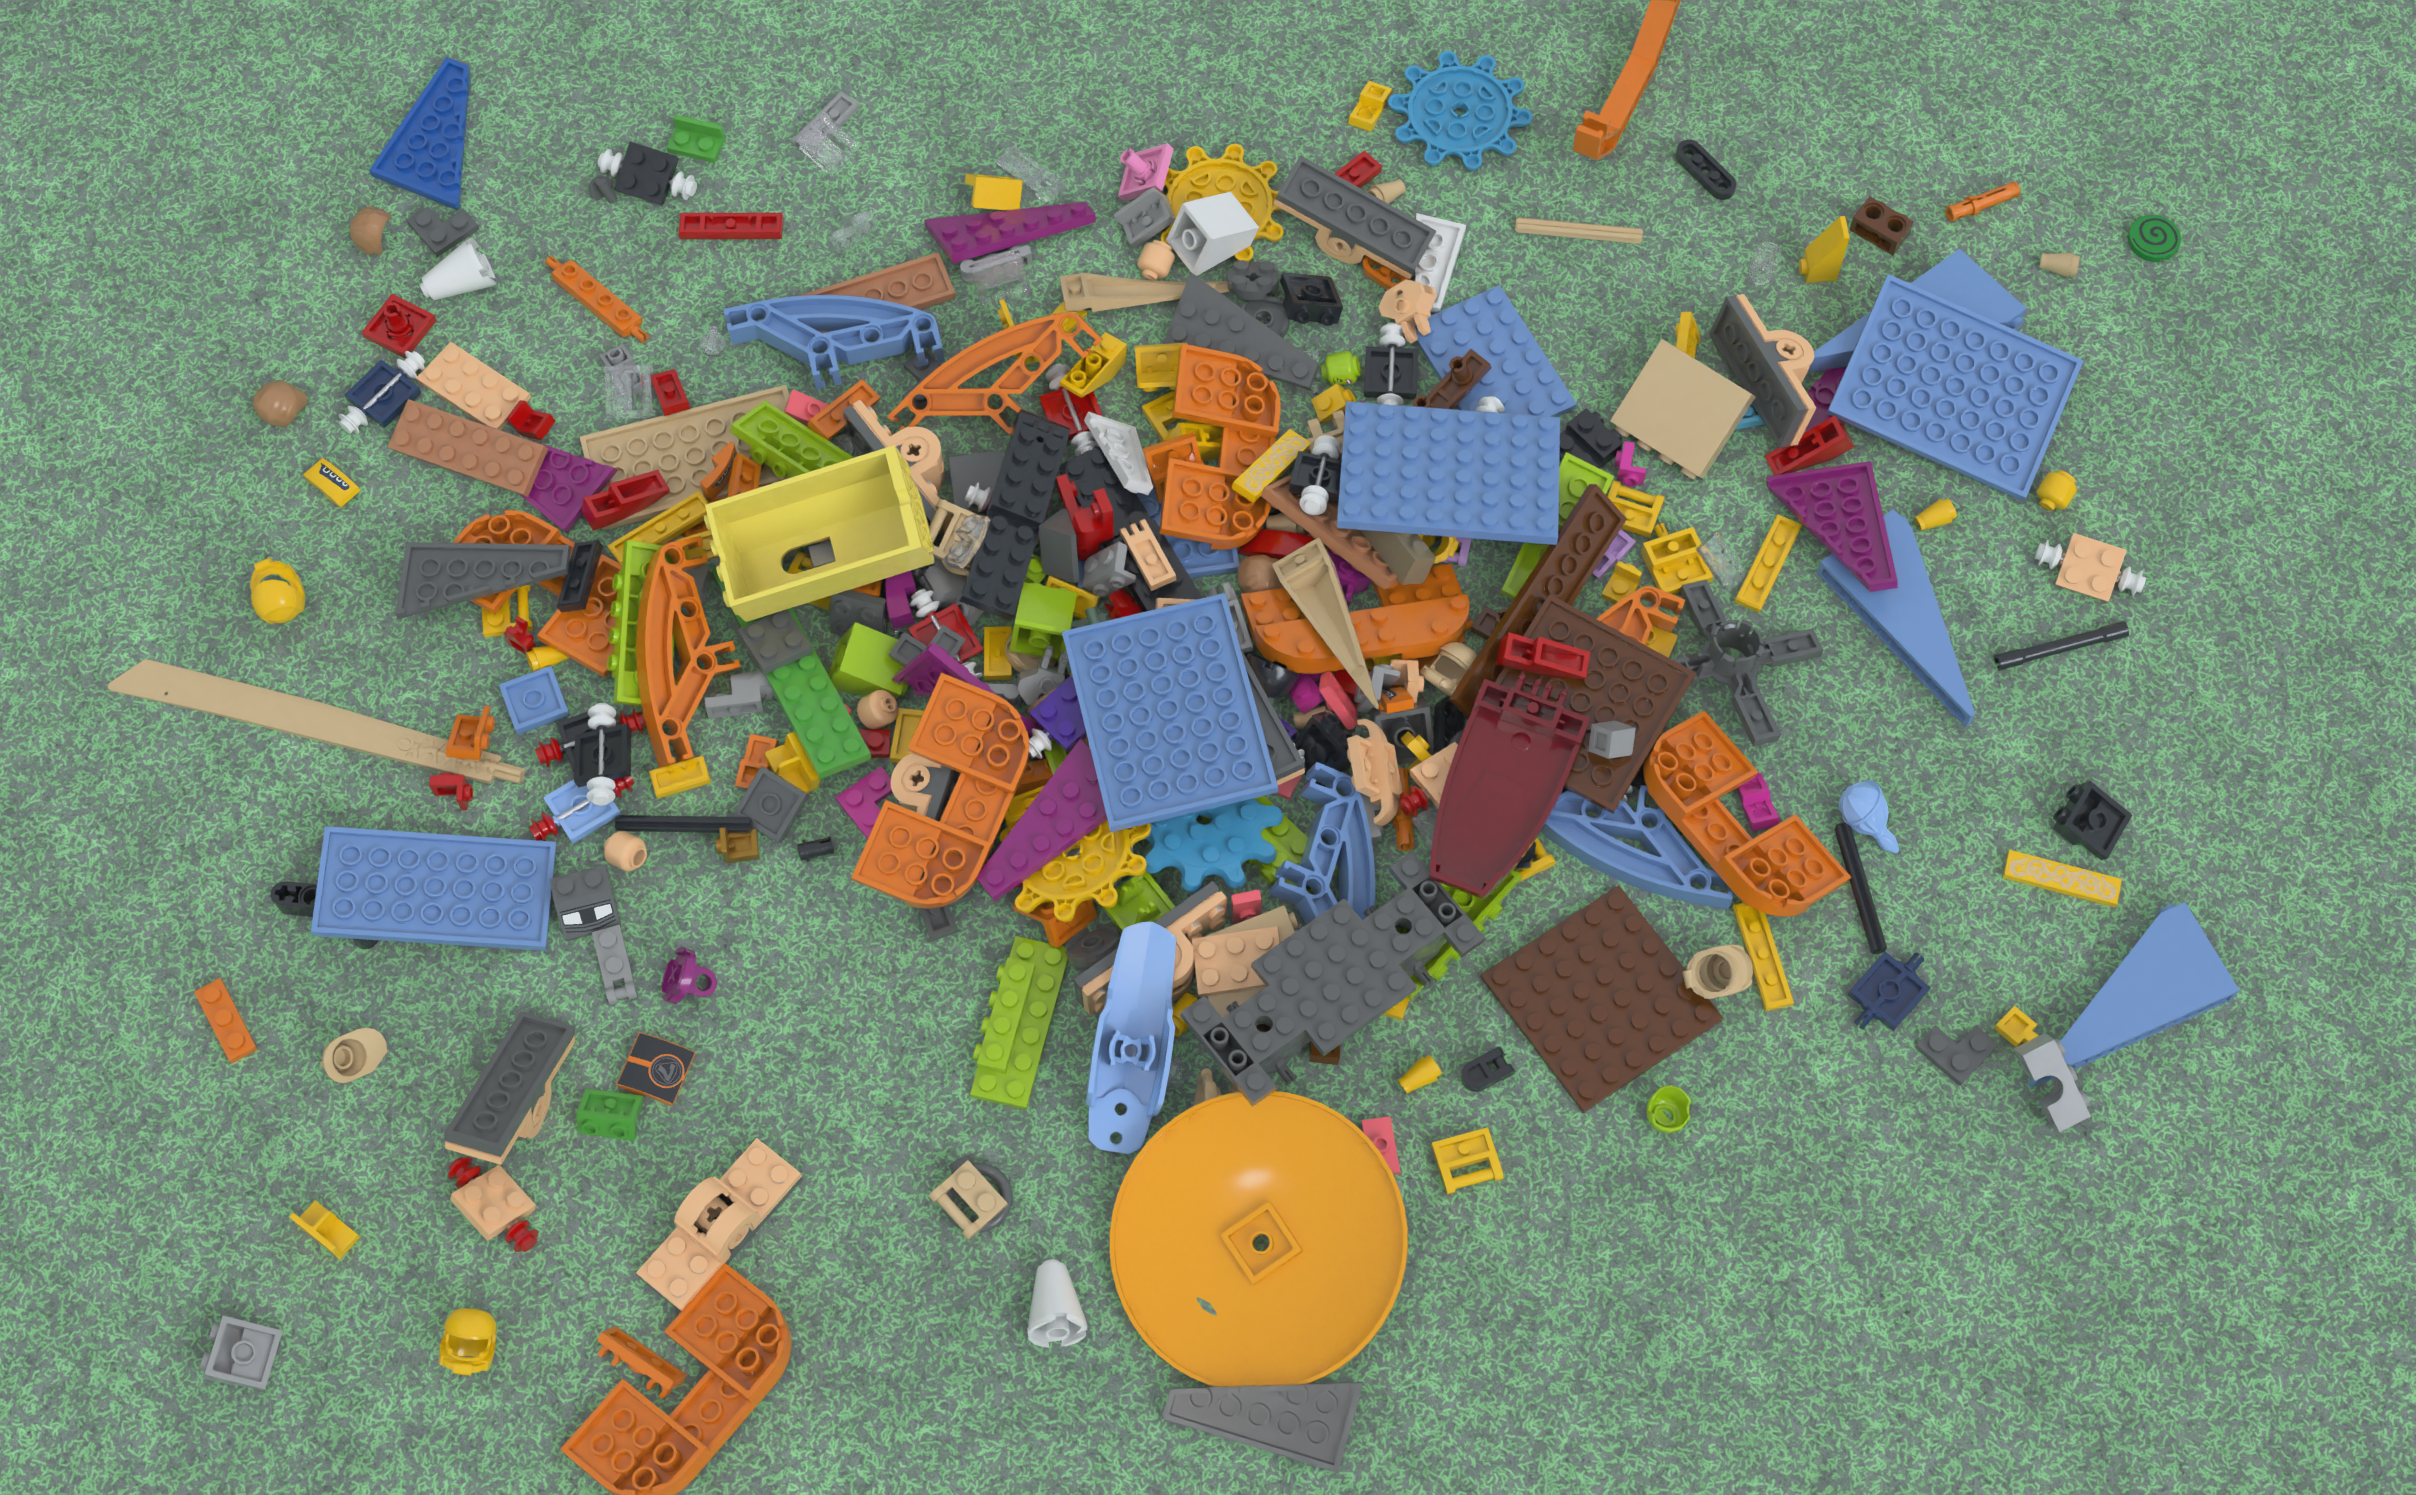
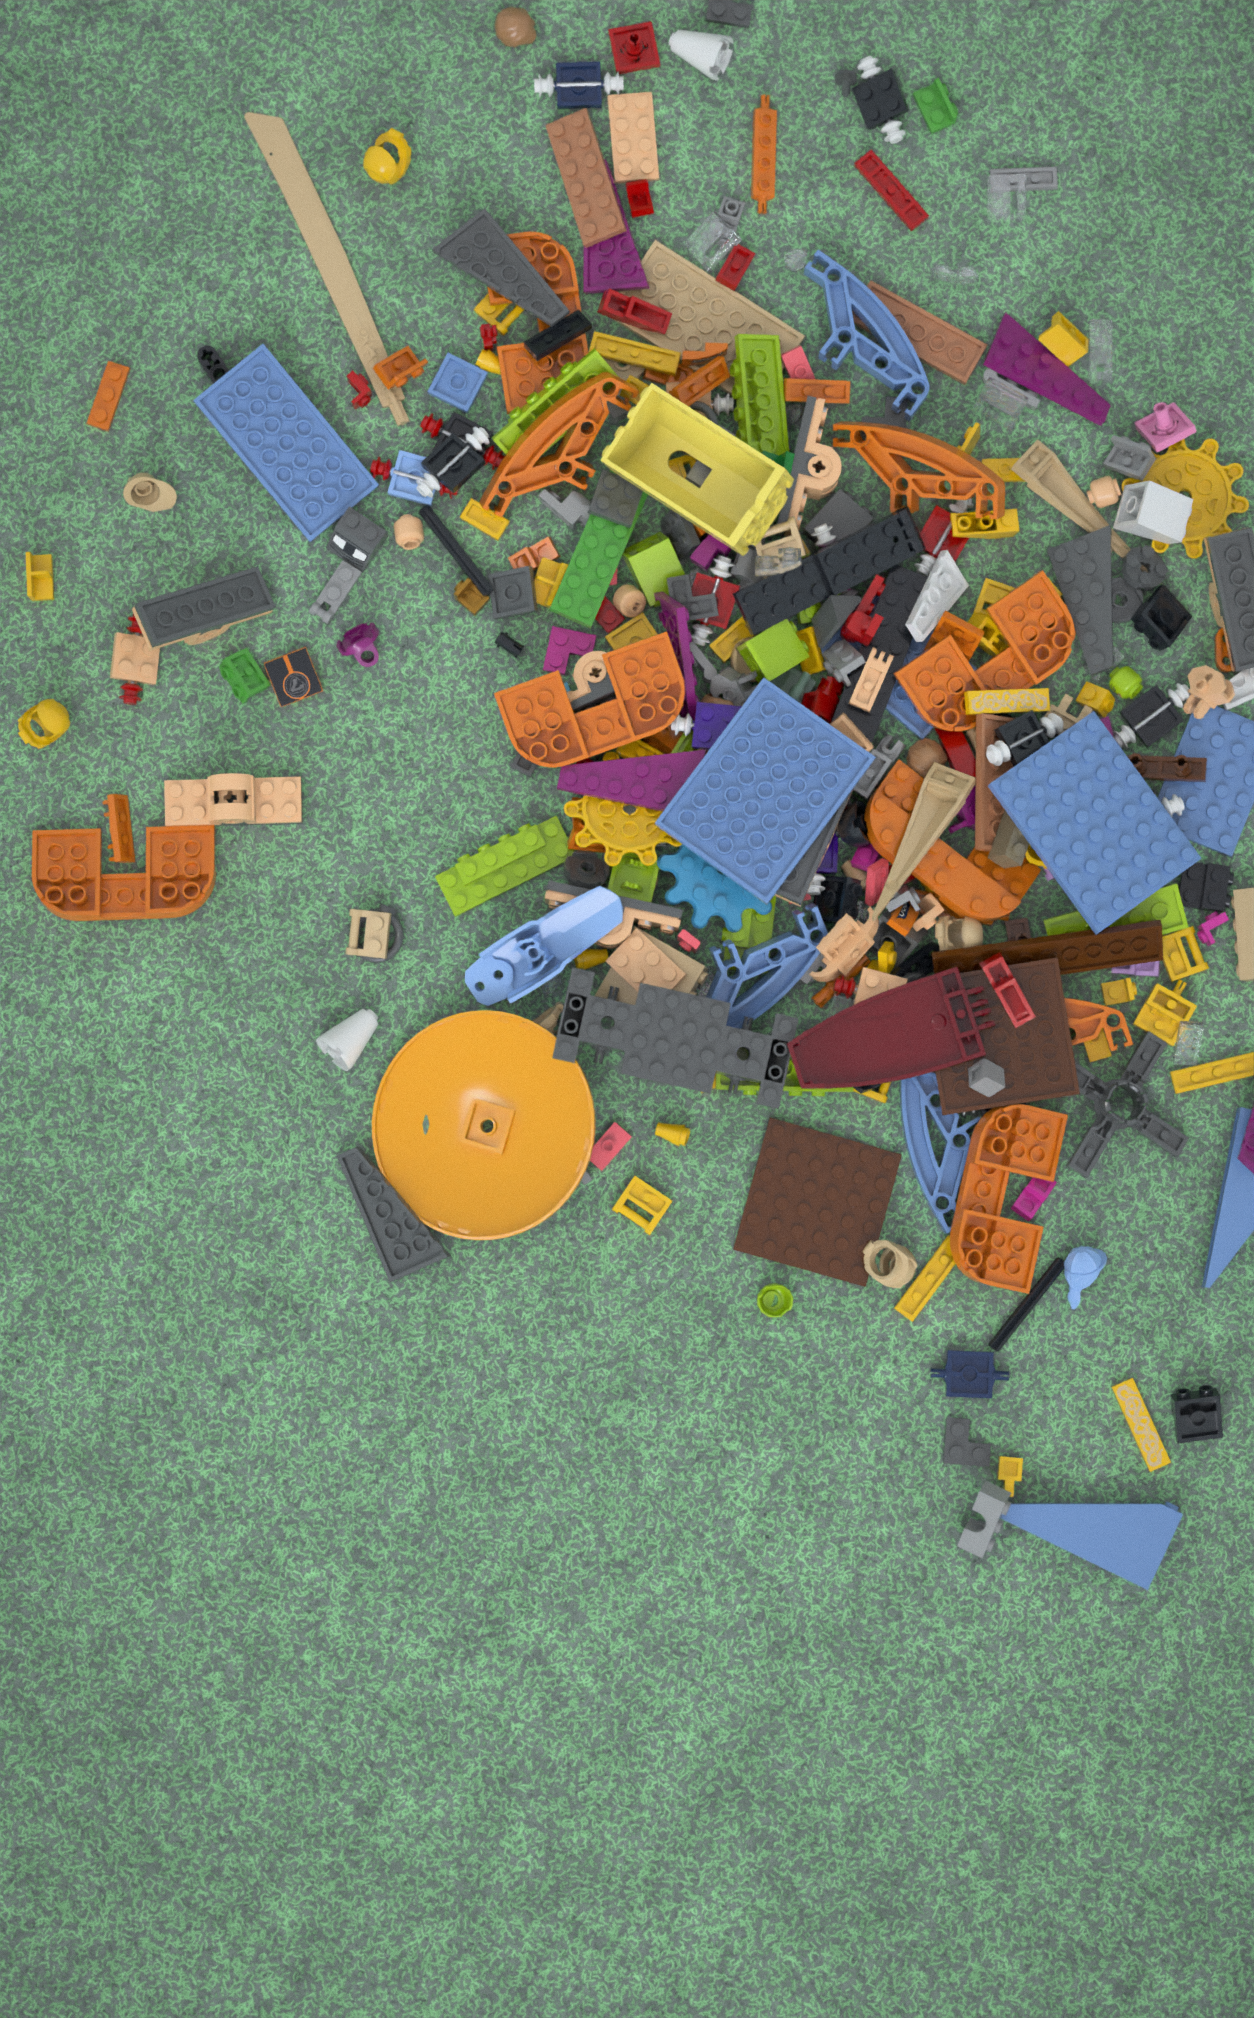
camera: 45 degrees right, 20 degrees up
(331, 482) = (491, 114): yellow slope -> none
(1157, 366) = (1022, 563): yellow bracket -> none
(1477, 1075) = (702, 1166): black plate -> none

